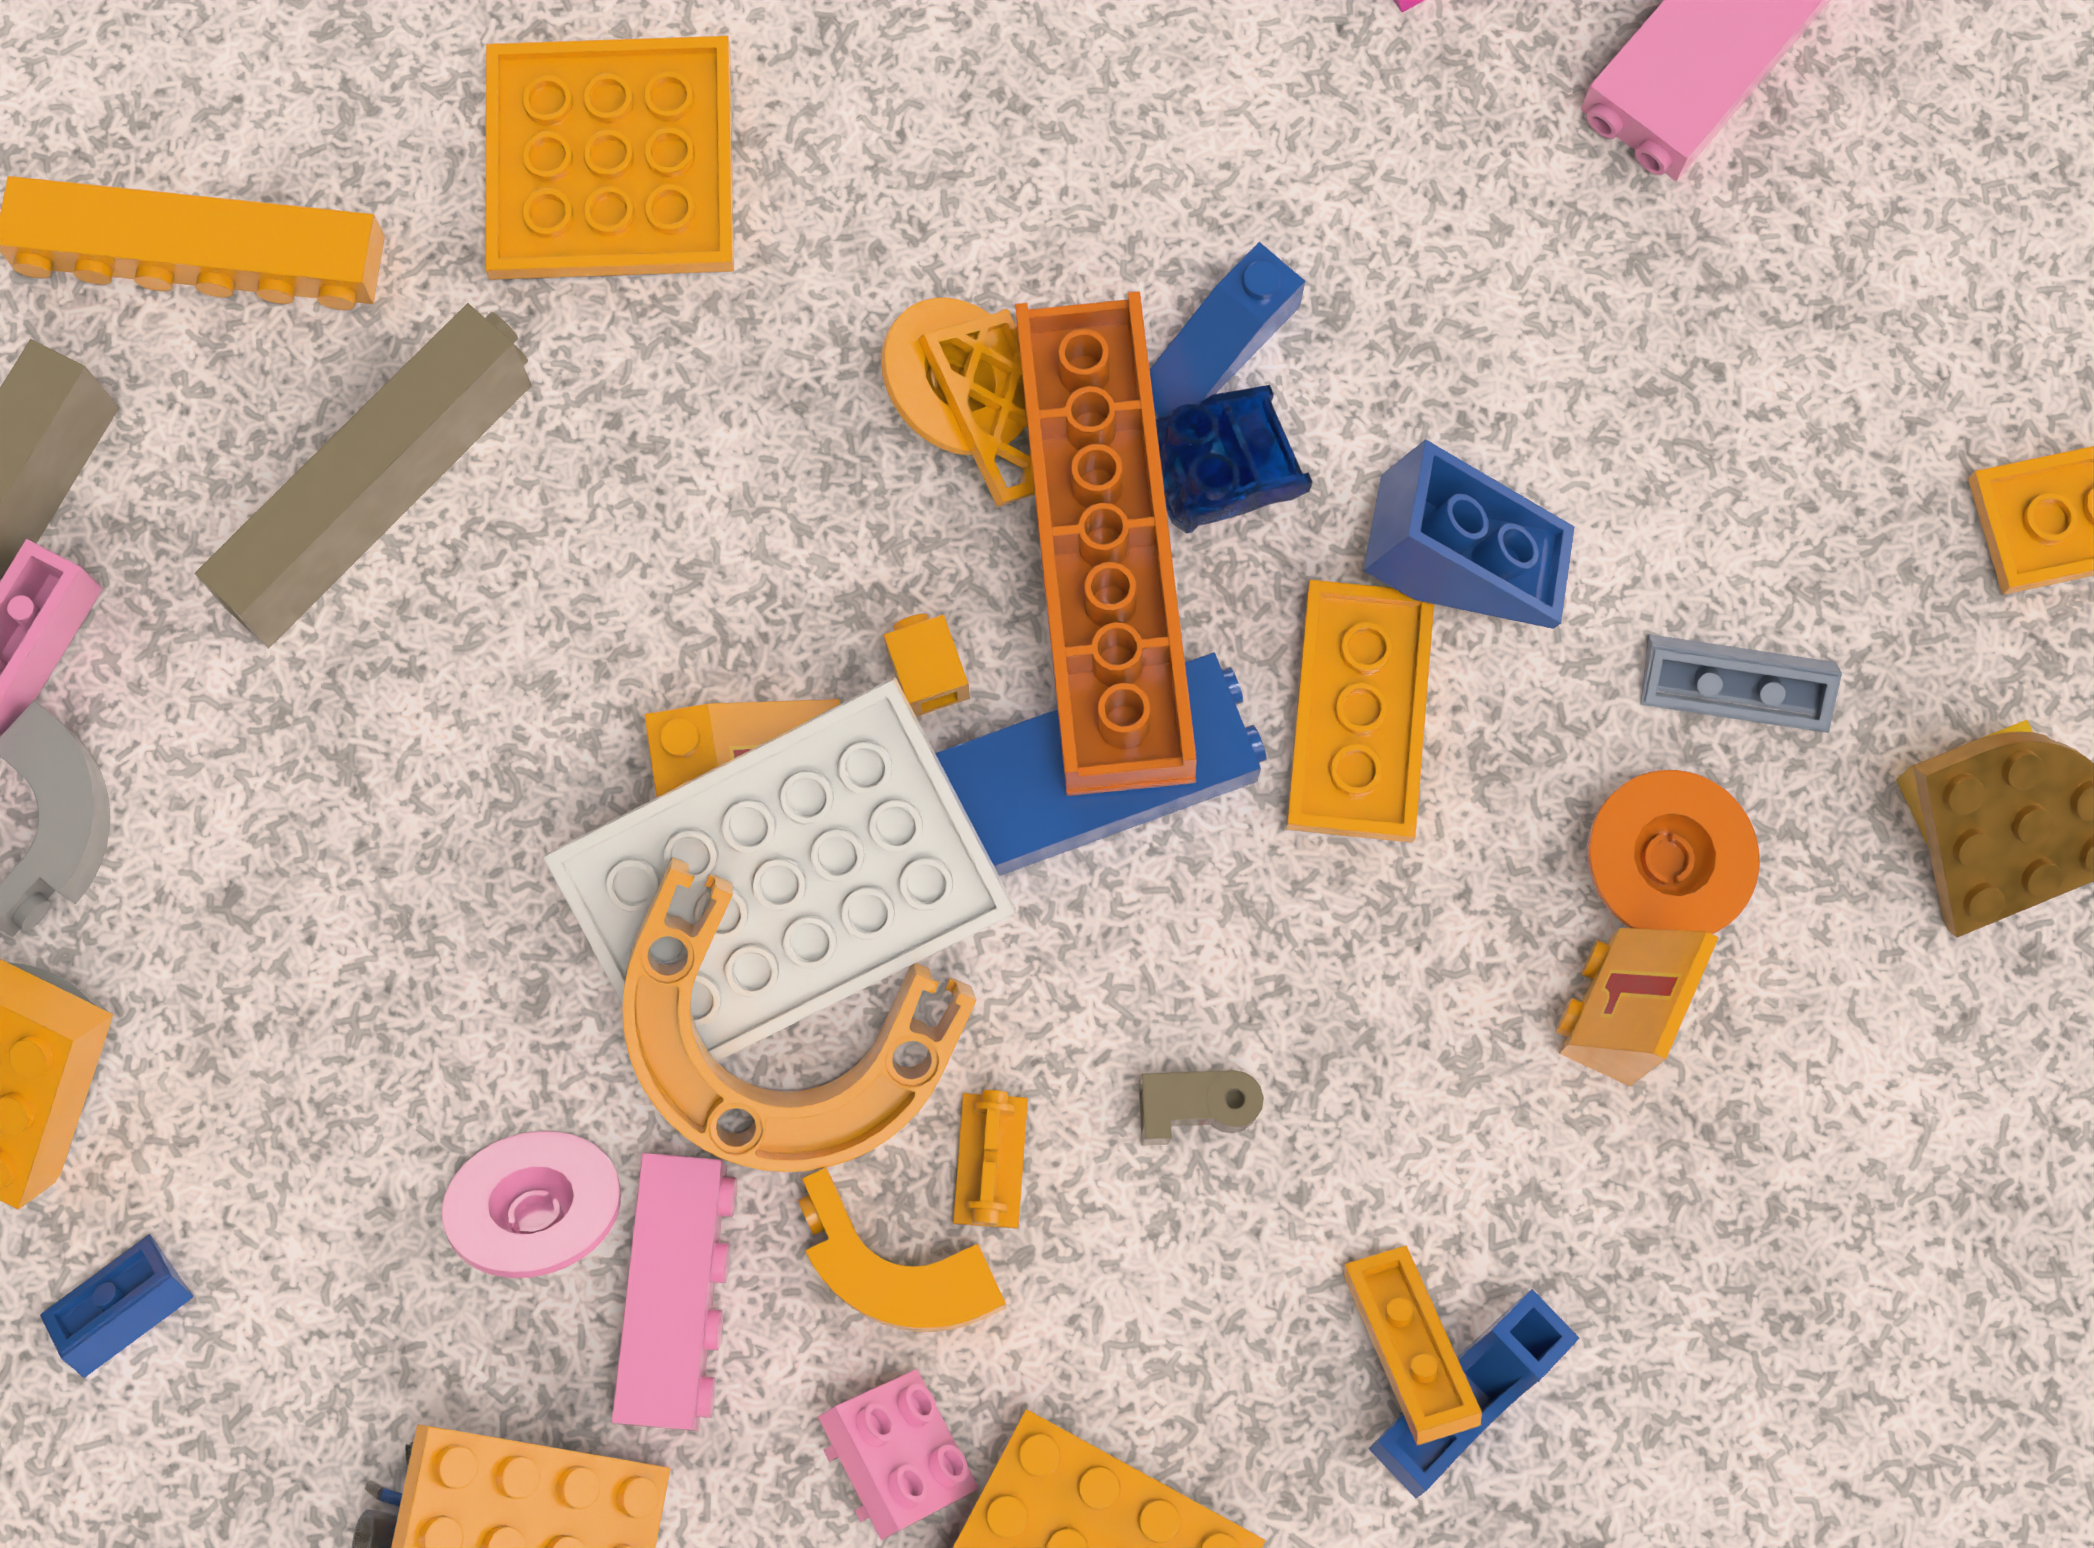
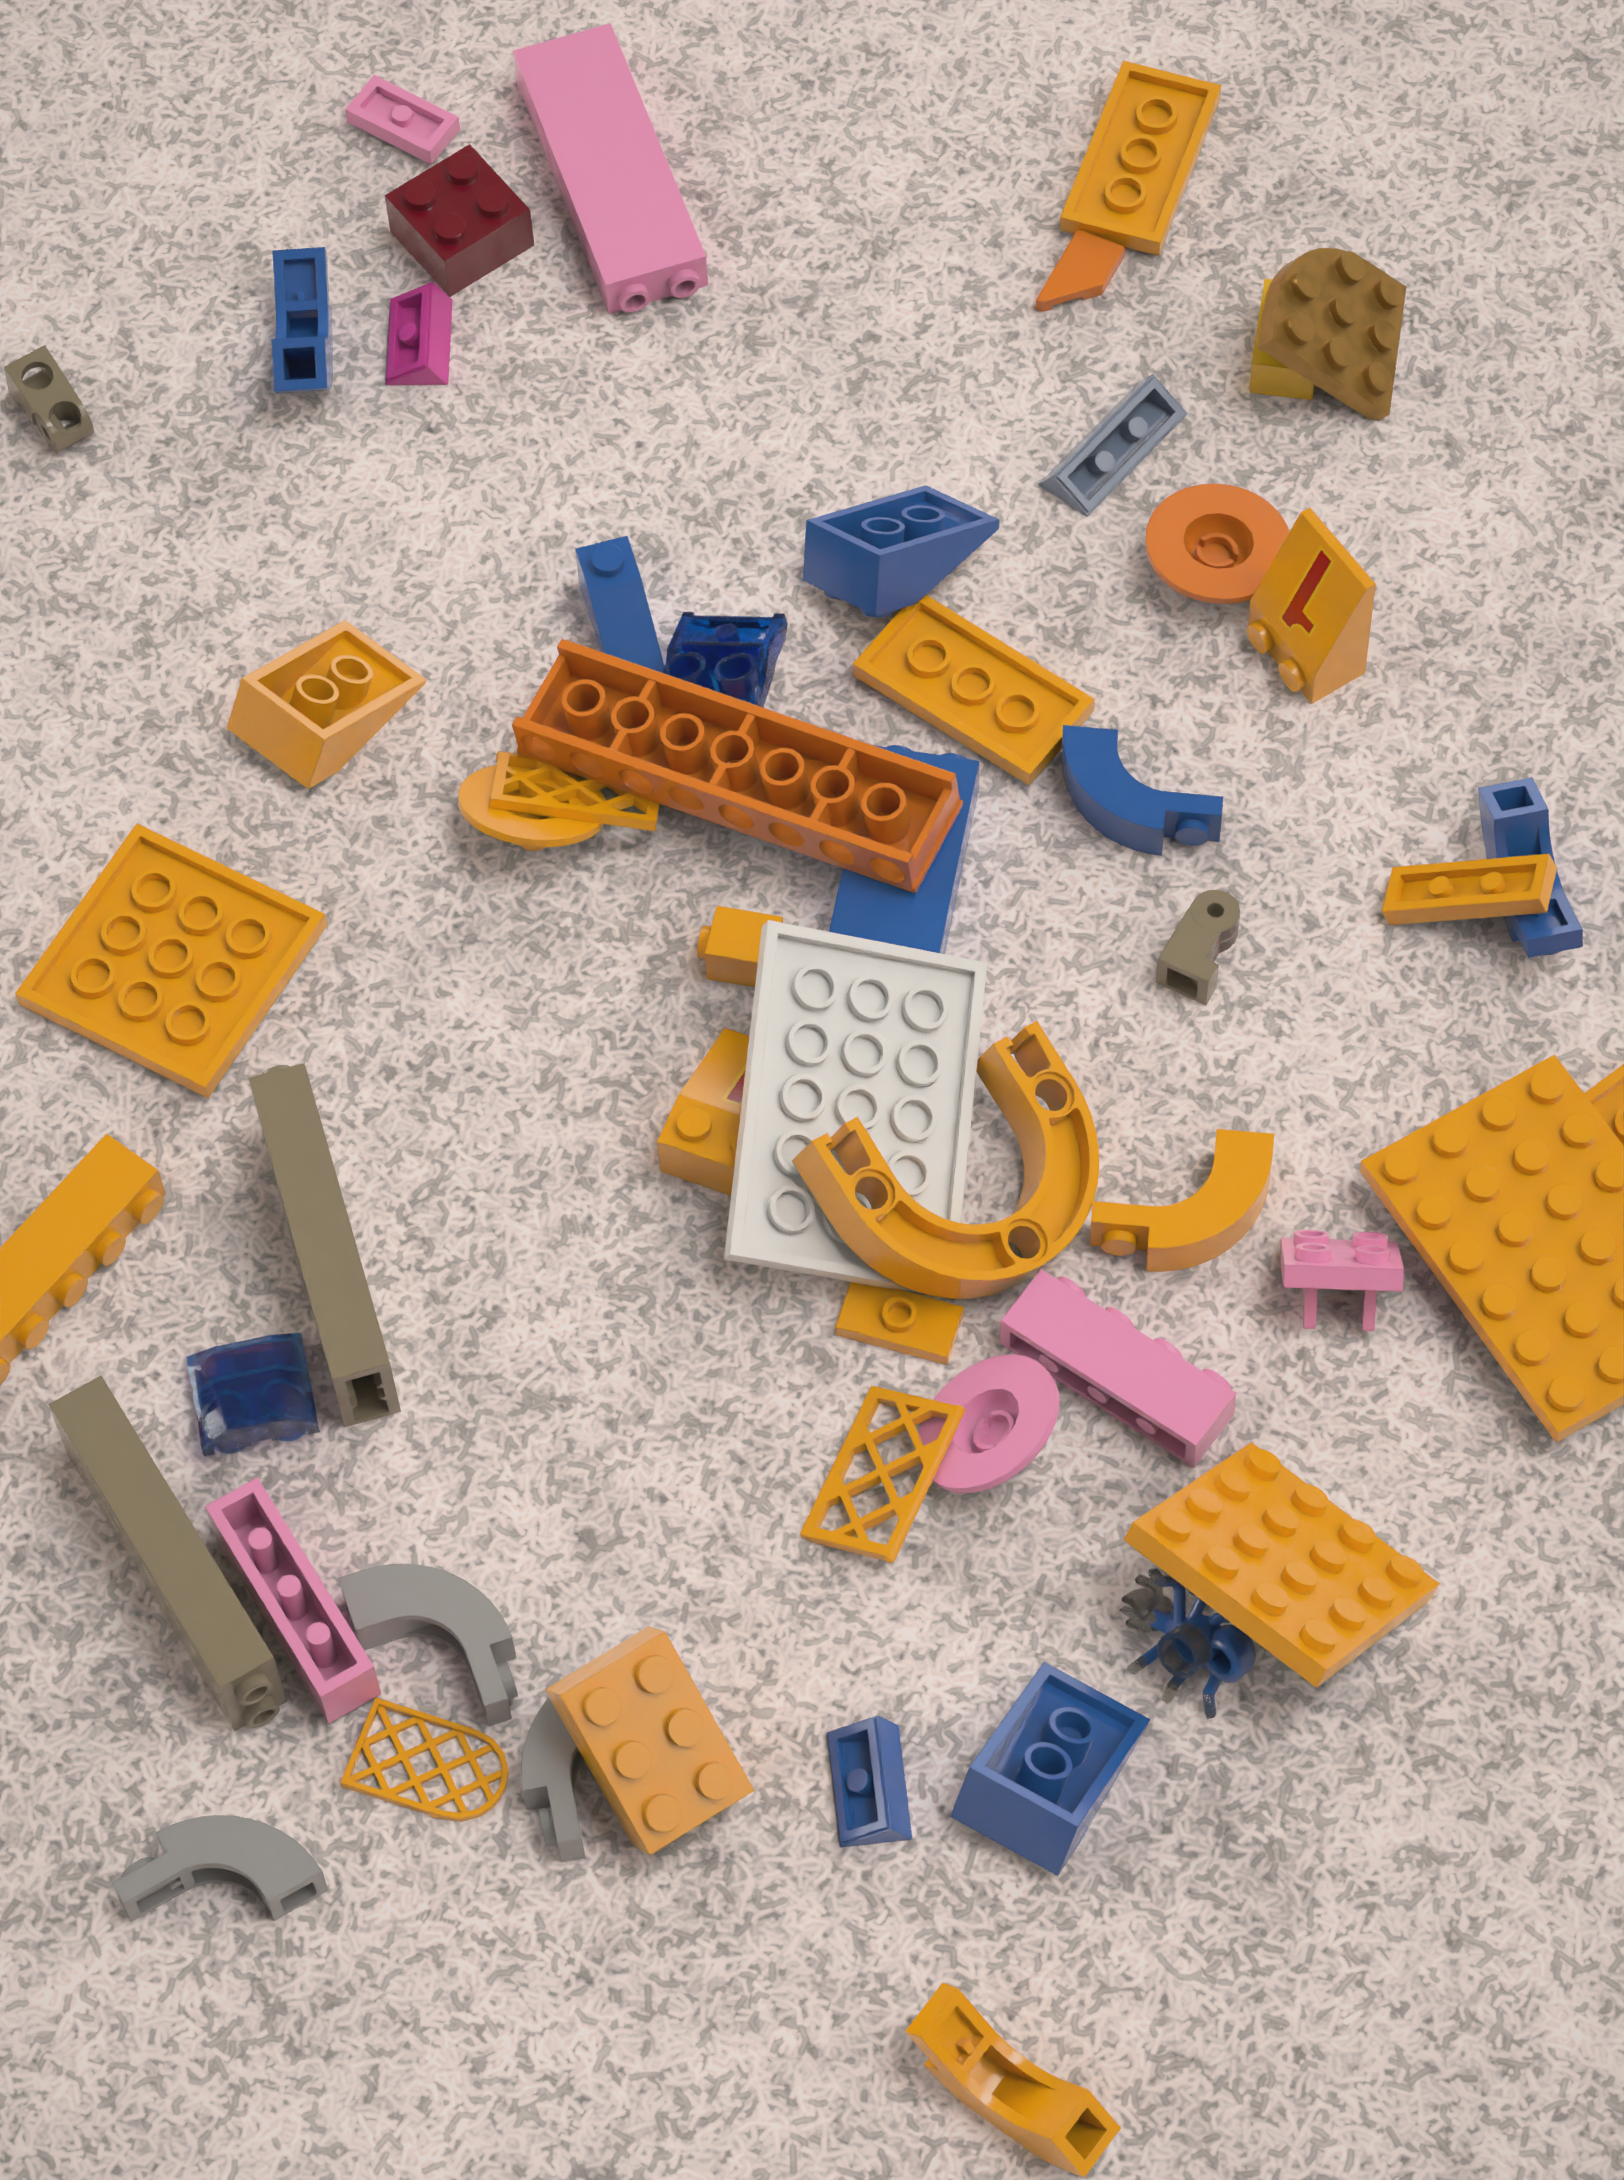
camera: 55 degrees left, 15 degrees down
(195, 501) = (252, 1393): none -> clear blue slope
(214, 1471) = (1048, 1768): none -> blue slope
(403, 1097) = (860, 1439): none -> light orange window
(605, 1057) = (900, 1321): none -> light orange plate
(965, 118) = (321, 702): none -> light orange slope
(990, 1160) = (1152, 1106): light orange hinge -> none
(1321, 895) = (1125, 807): none -> blue arch
(1930, 529) = (1081, 271): none -> orange tile

